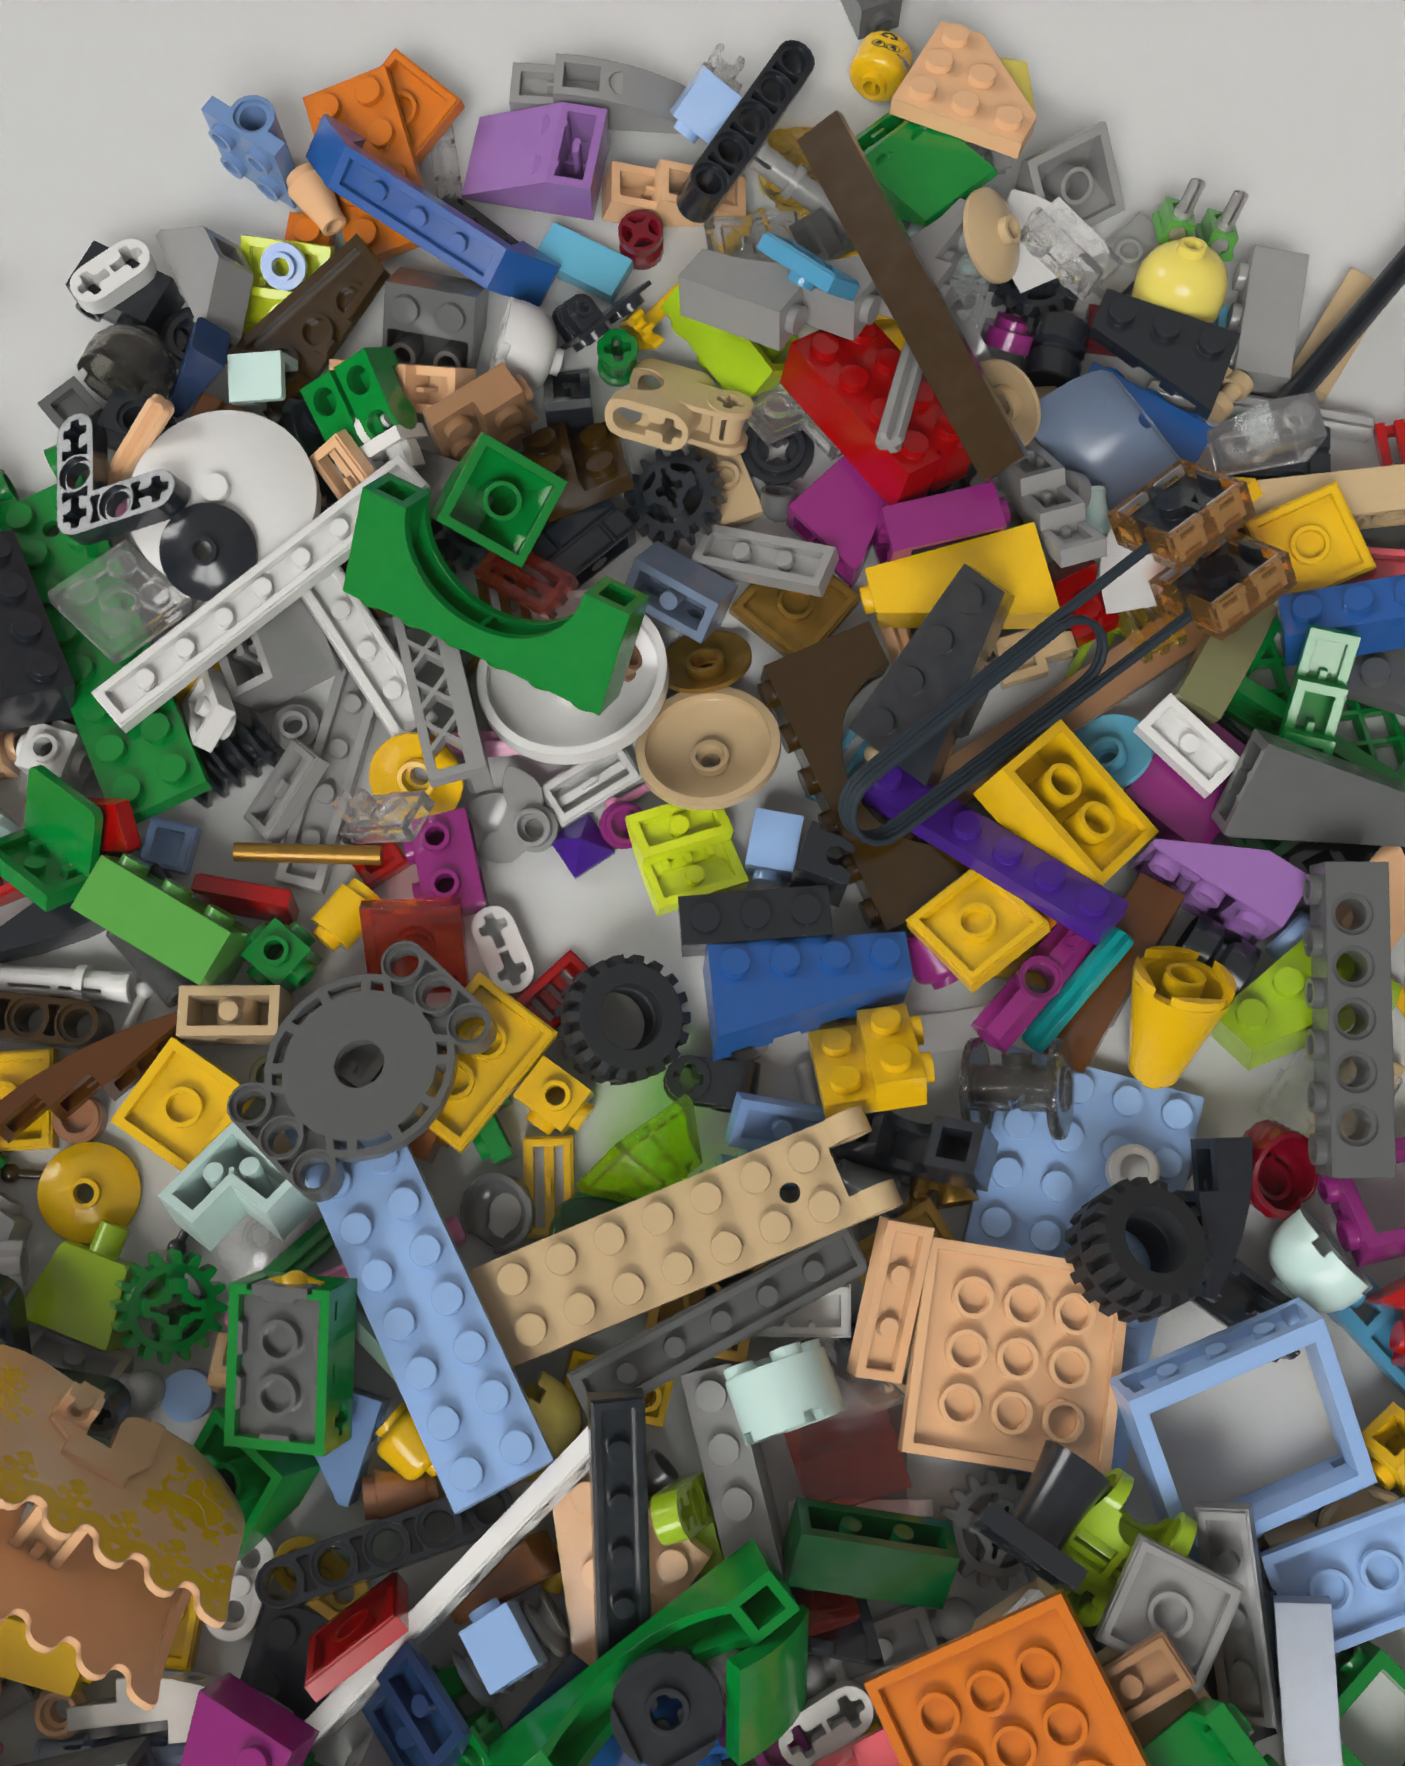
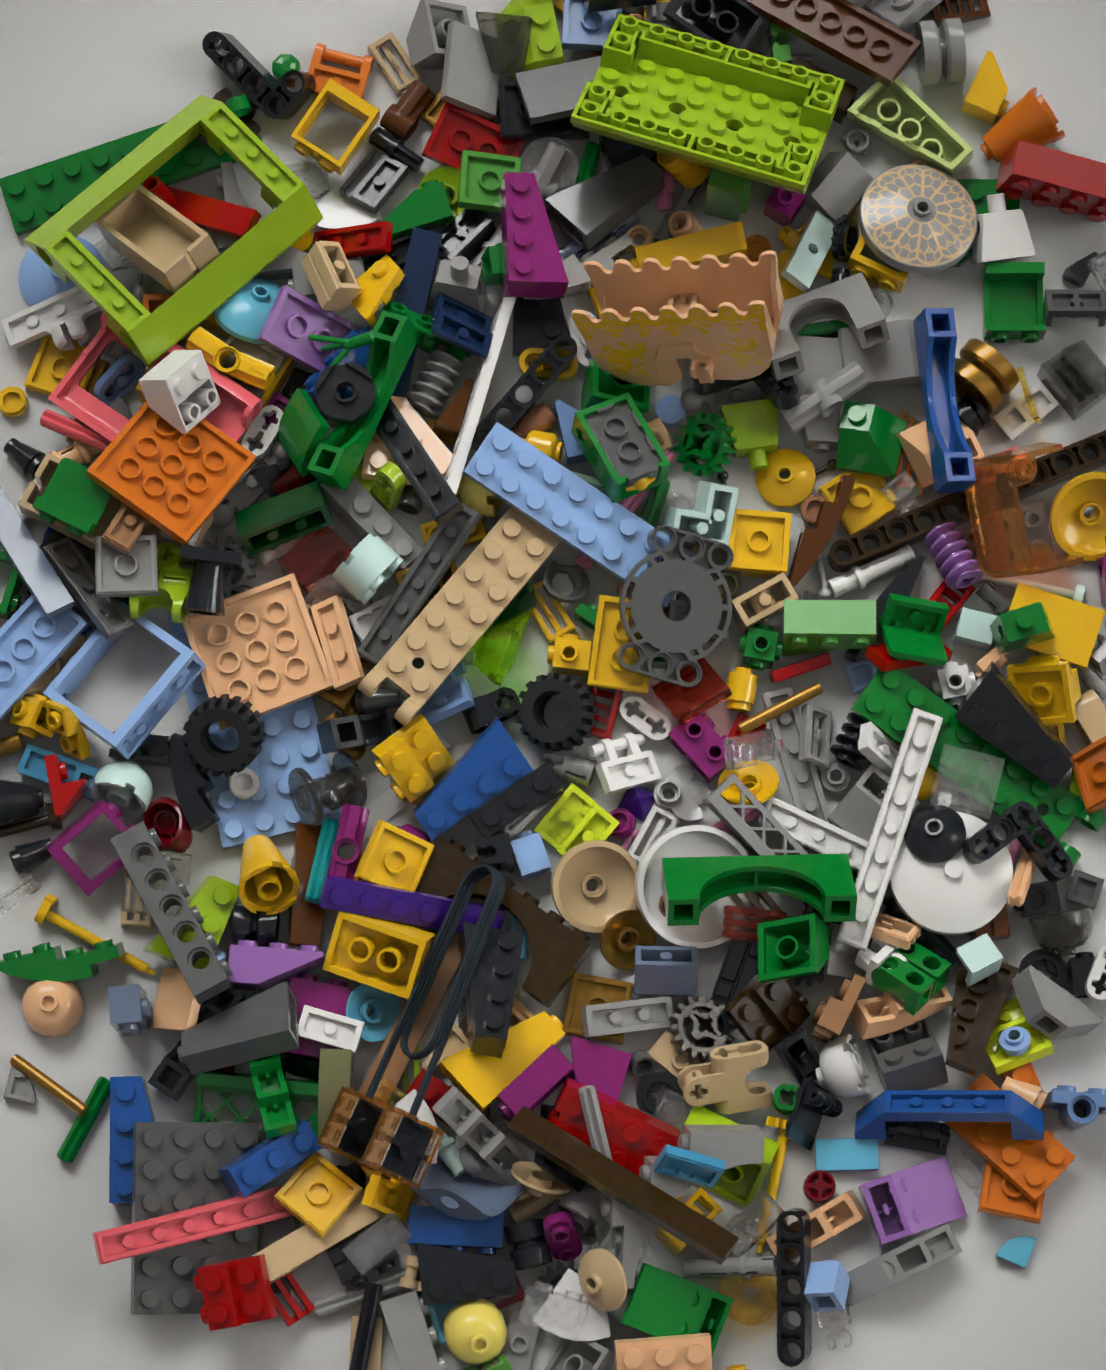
camera: 150 degrees right, 0 degrees up
(201, 363) = (1019, 947): dark blue slope -> none
(356, 1635) = (512, 347): red plate -> none
(445, 51) = (1017, 1250): none -> medium azure tile
(501, 1644) = (440, 380): light blue brick -> none
(574, 884) = (625, 772): none -> white plate
(647, 937) = (569, 766): none -> light grey hinge
(1363, 1381) = (64, 721): none -> yellow slope

